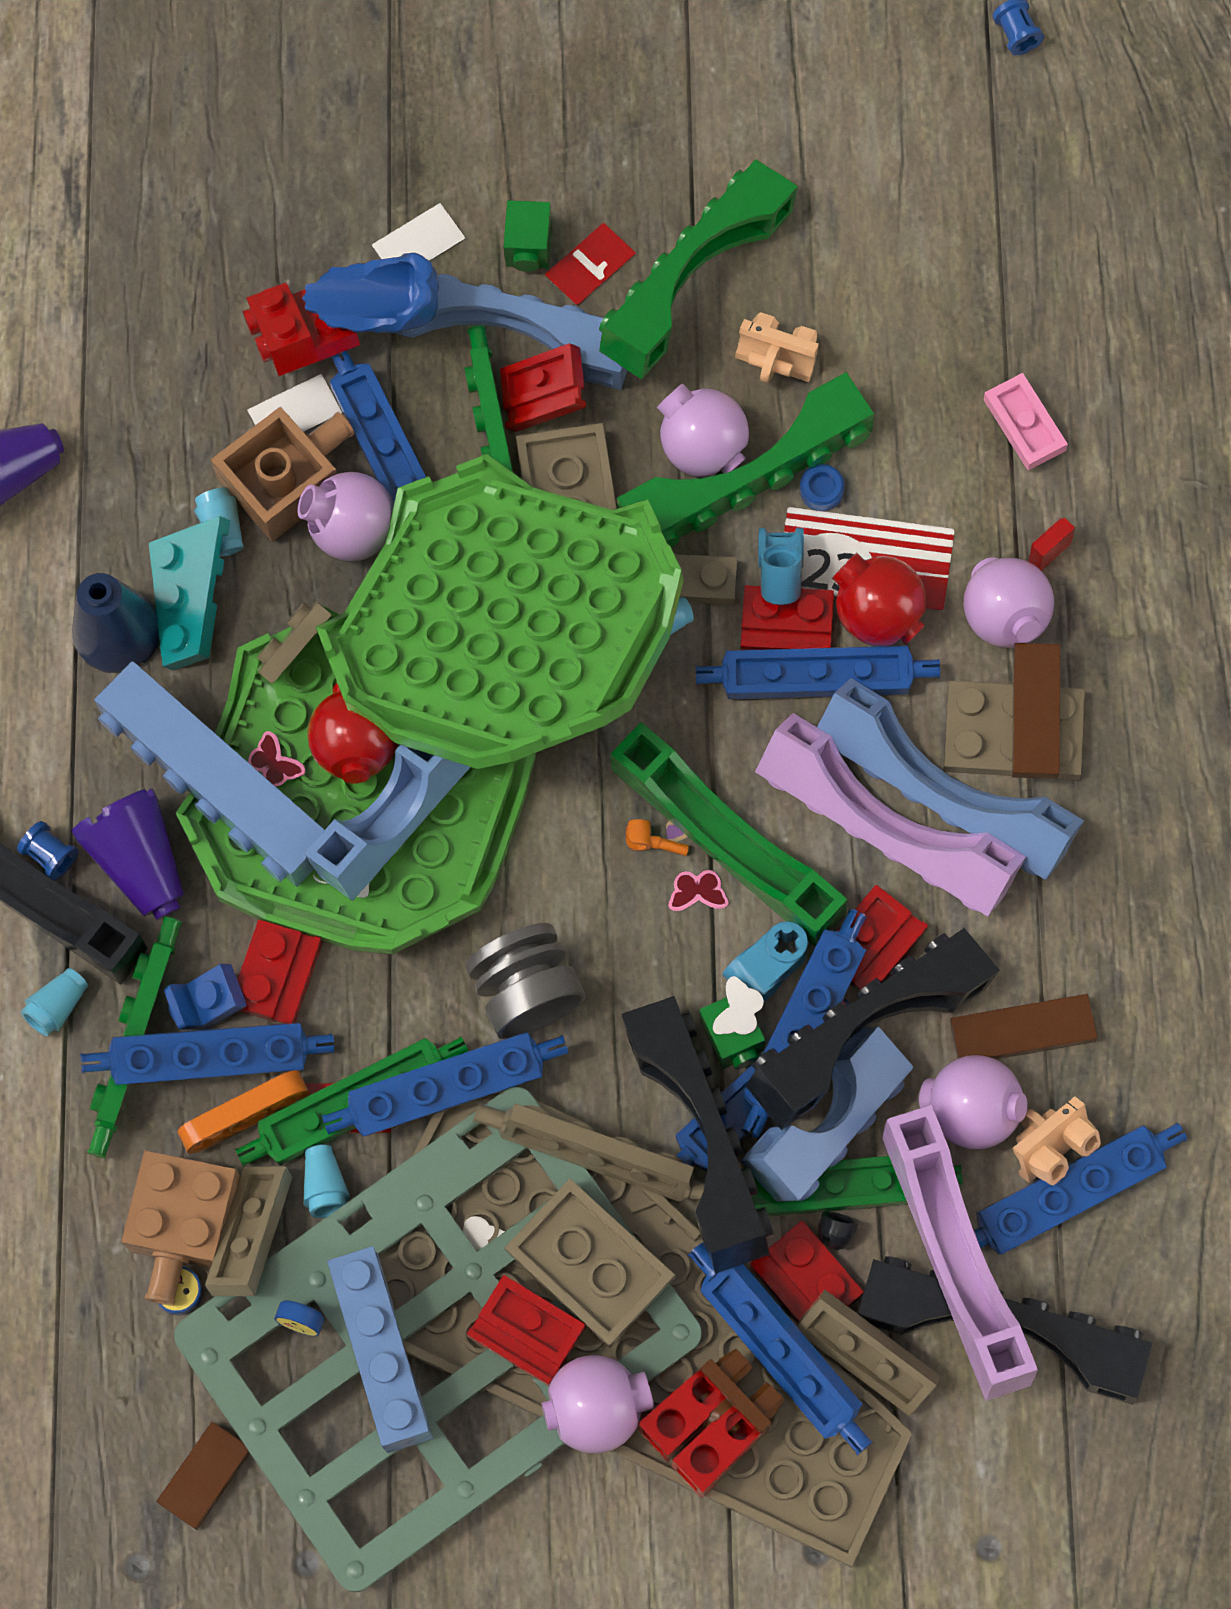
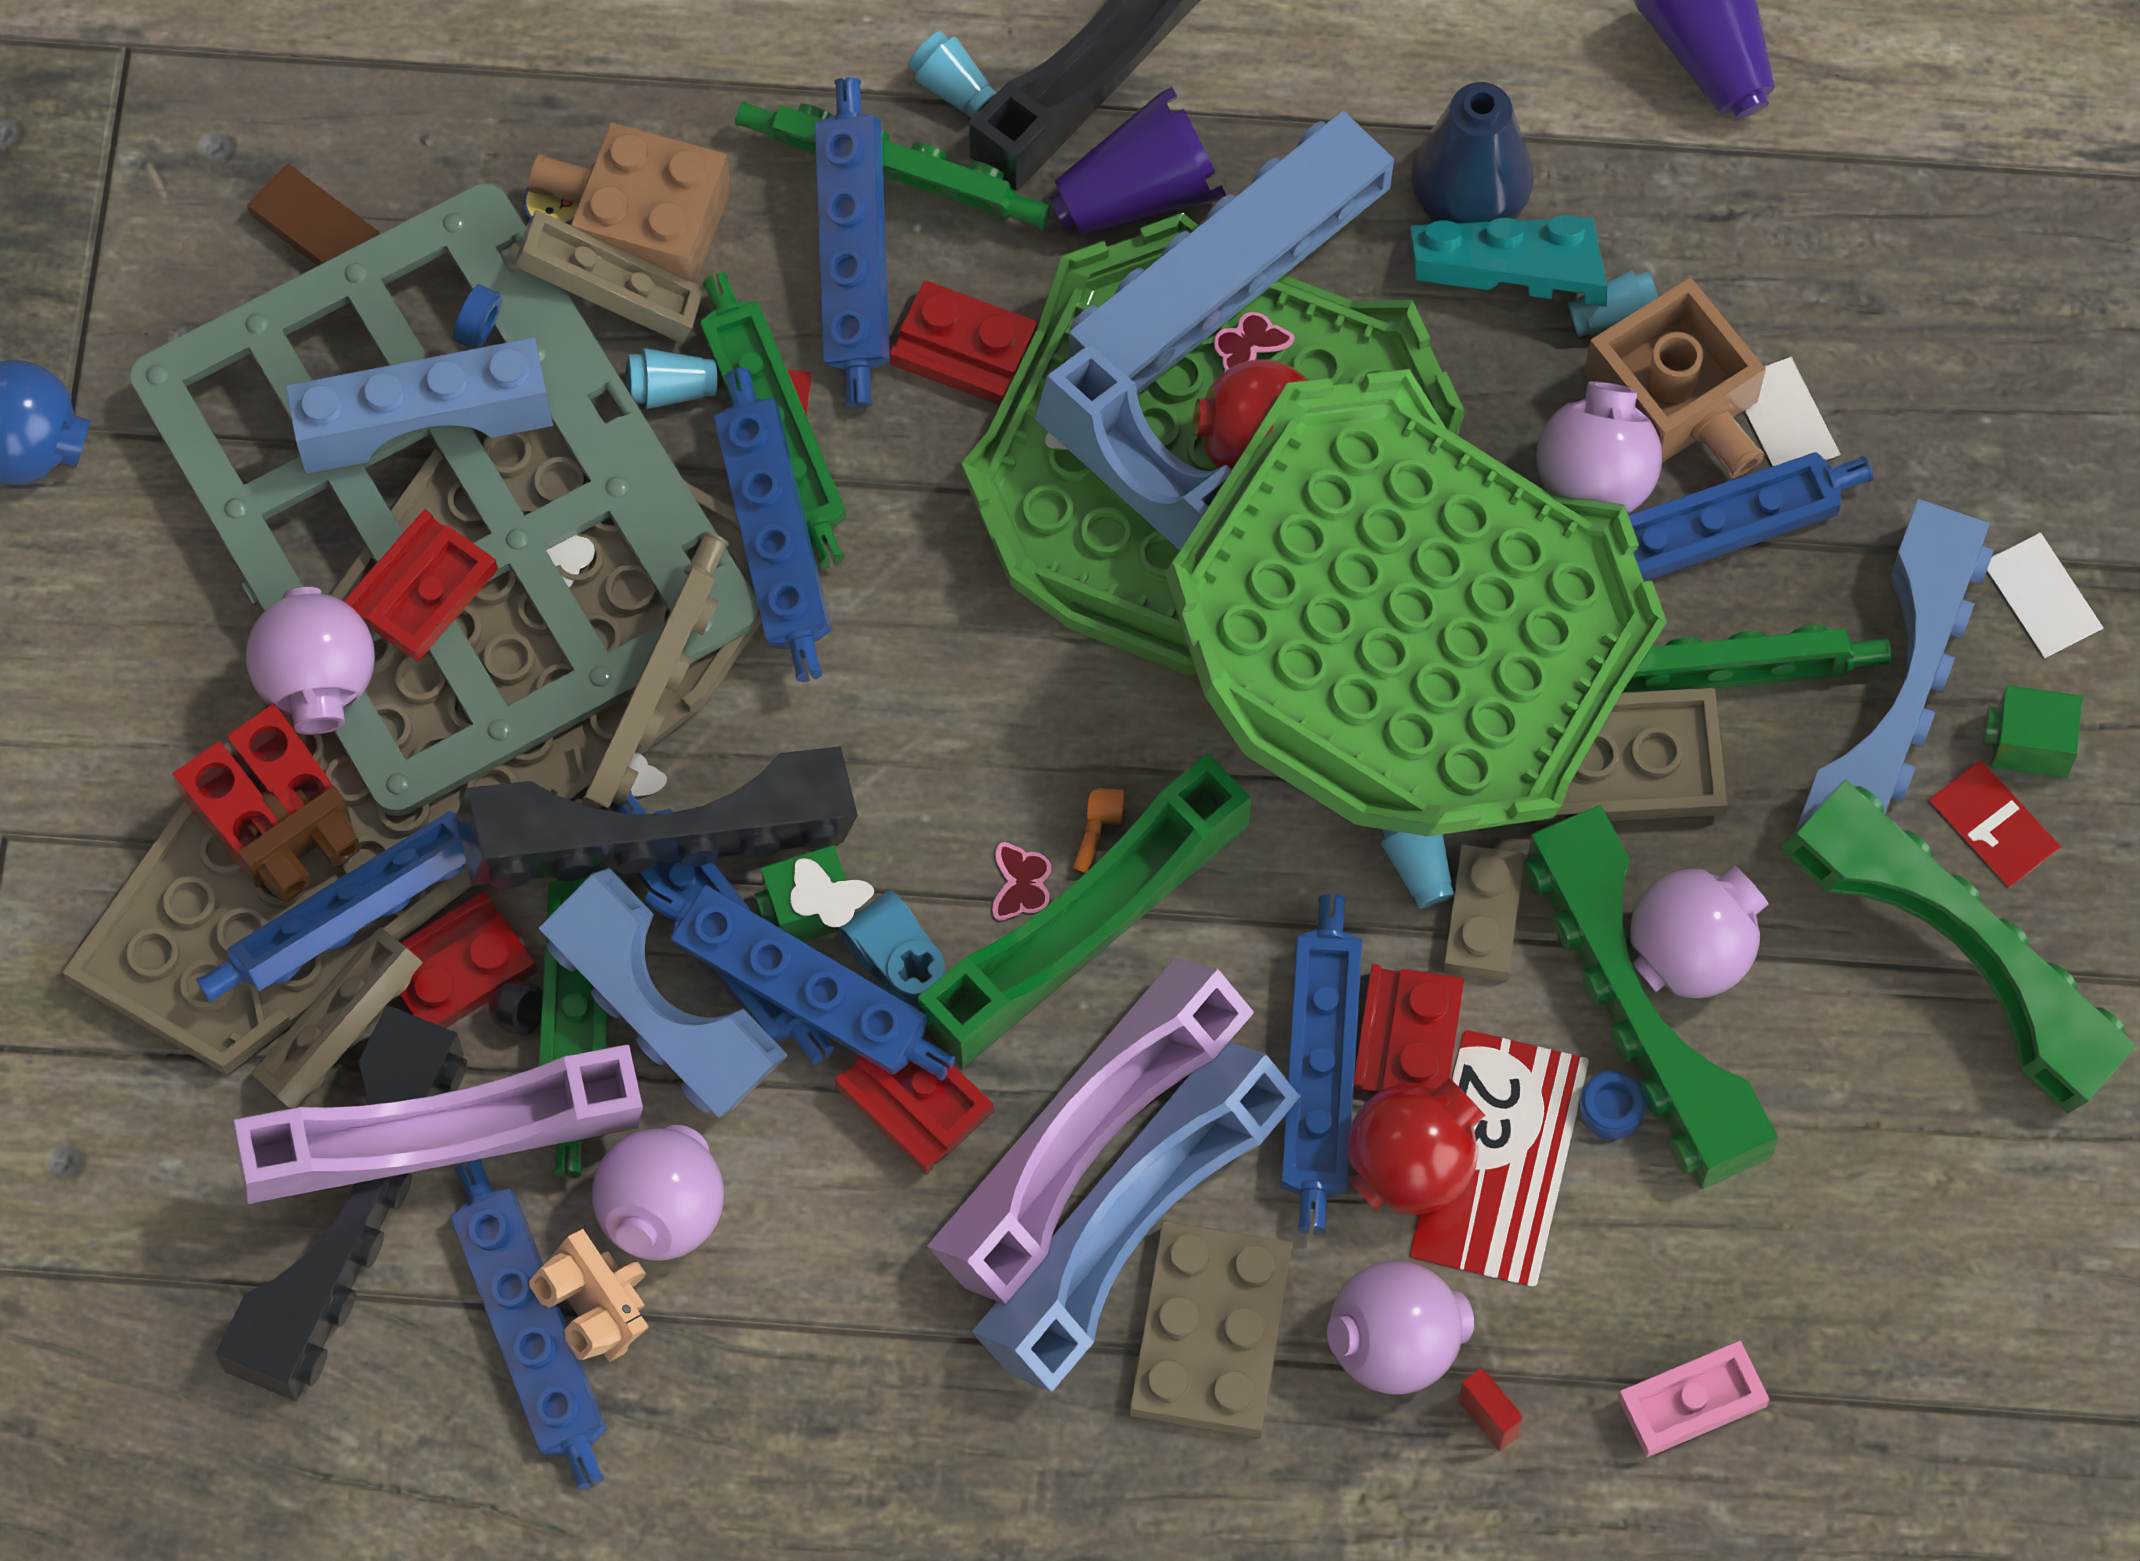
camera: 90 degrees right, 5 degrees down
(47, 850) = (1167, 67): blue bush -> none
(205, 999) = (931, 245): blue bracket -> none
(242, 1111) = (775, 288): orange beam -> none
(279, 654) = (1392, 343): dark tan plate -> none
(290, 332) = (1904, 416): red plate -> none
(376, 295) = (1925, 499): blue hair -> none
(525, 980) = (901, 627): flat silver wheel -> none
(543, 387) = (1786, 726): red plate -> none
(589, 1263) = (498, 669): dark tan plate -> none
(777, 351) = (1820, 1054): light nougat hips -> none
(781, 565) = (1487, 1023): dark azure piece -> none
(940, 980) = (842, 1171): black arch -> none
(1025, 1028) = (765, 1287): reddish brown tile -> none
(1036, 711) = (1225, 1346): reddish brown tile -> none

